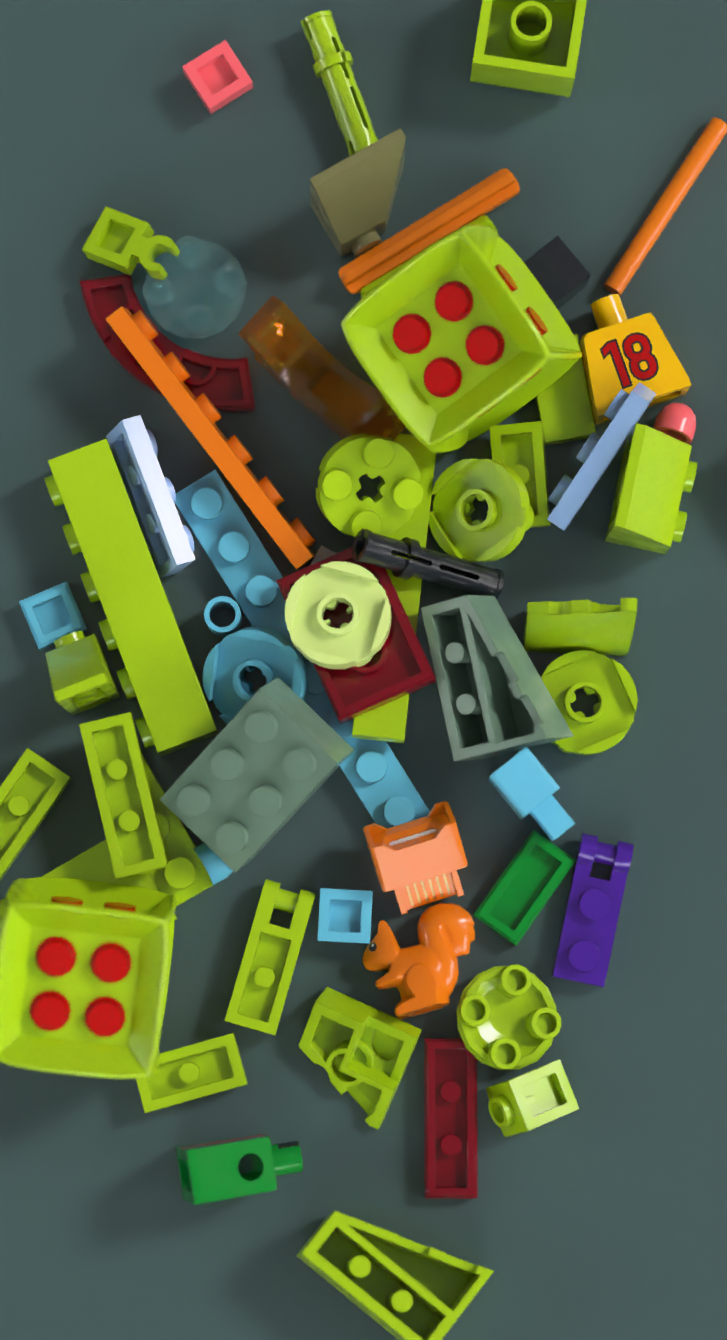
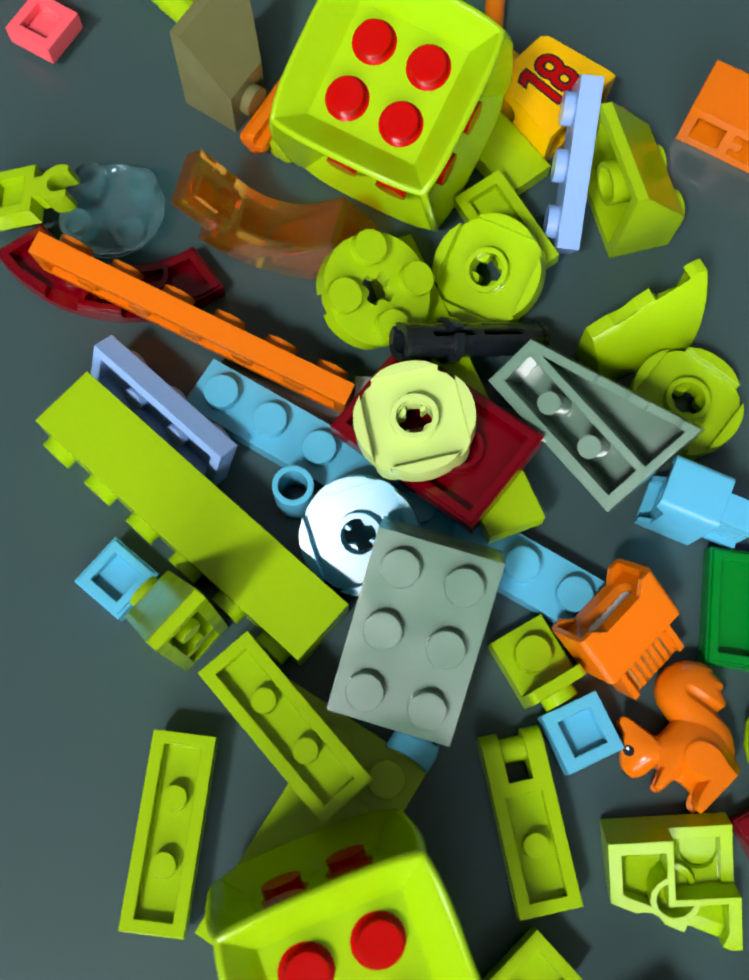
camera: 30 degrees left, 10 degrees down
(341, 848) = (536, 665): none -> lime bracket

